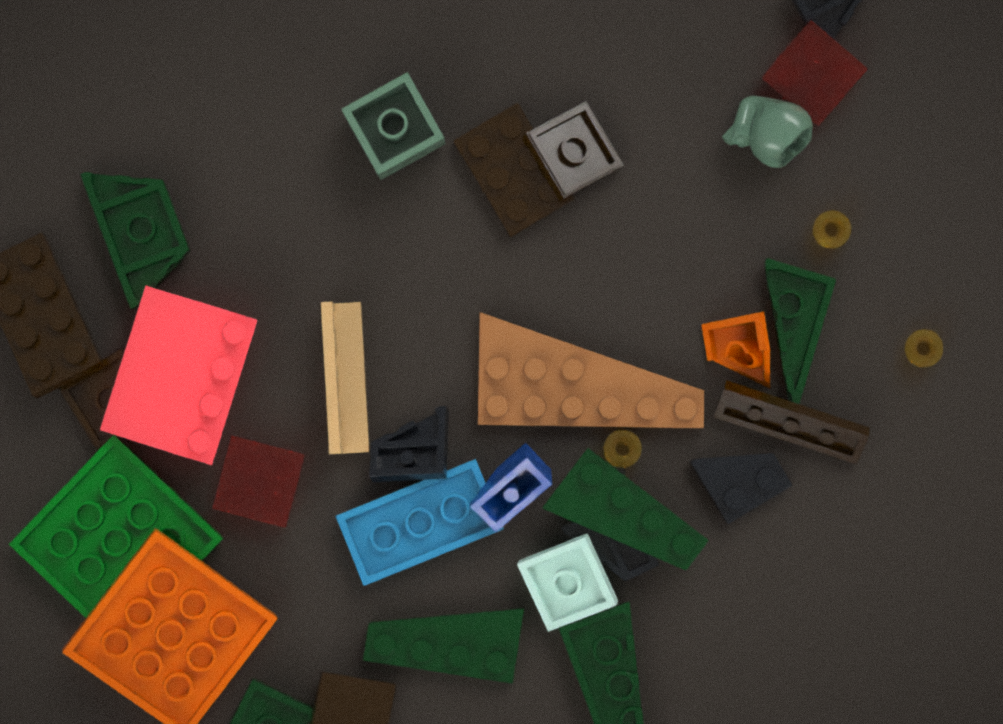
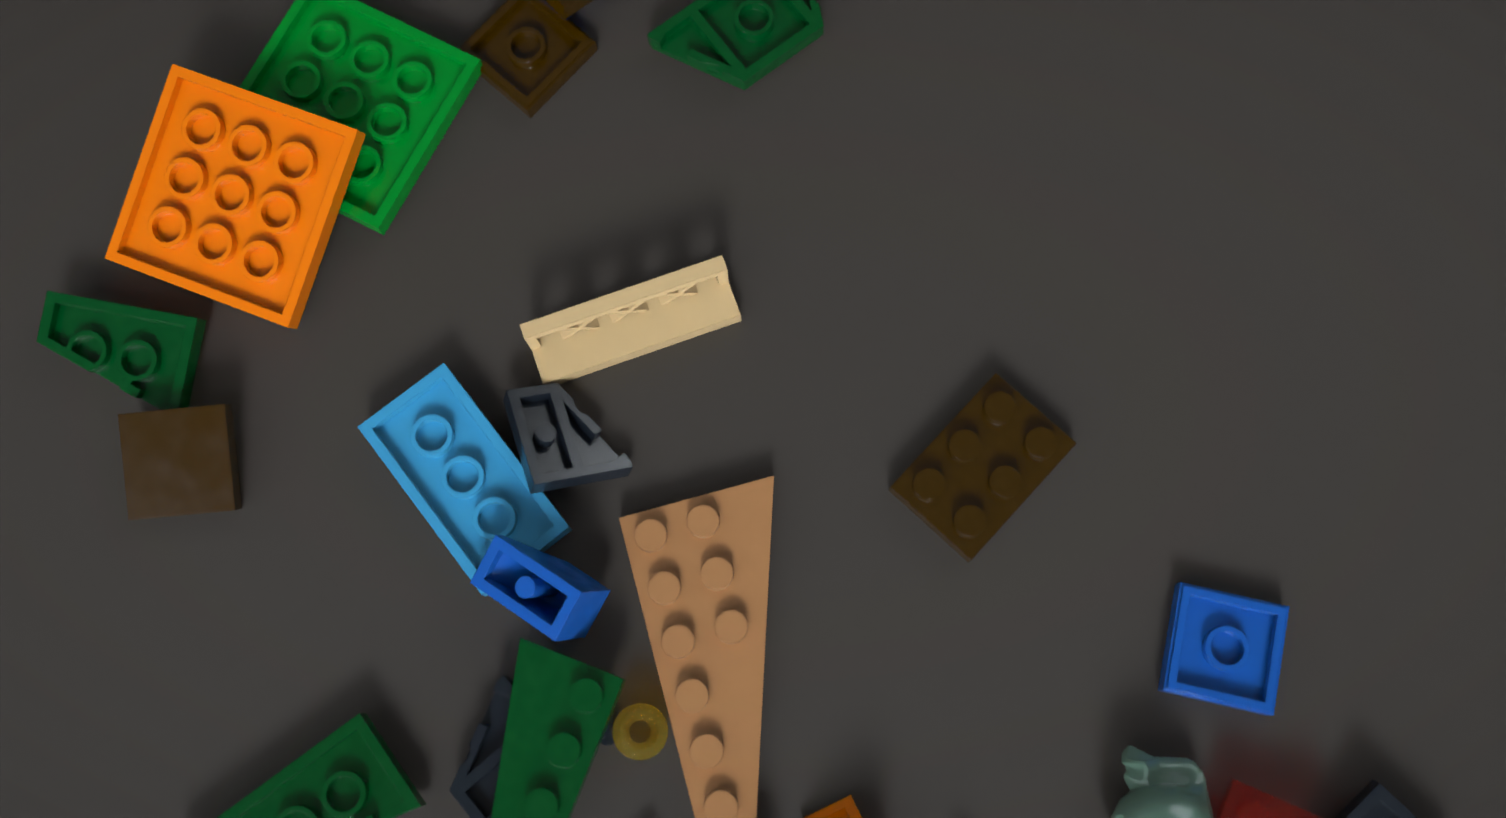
camera: 75 degrees right, 10 degrees down
(178, 375) = (575, 115): coral slope -> none
(258, 481) = (466, 255): clear red plate -> none
(393, 126) = (988, 284): sand green brick -> none
(458, 644) = (309, 576): dark green wing -> none
(567, 582) = (426, 708): light aqua plate -> none
(572, 151) = (1035, 537): tile -> none
(679, 52) = (1224, 649): none -> blue tile

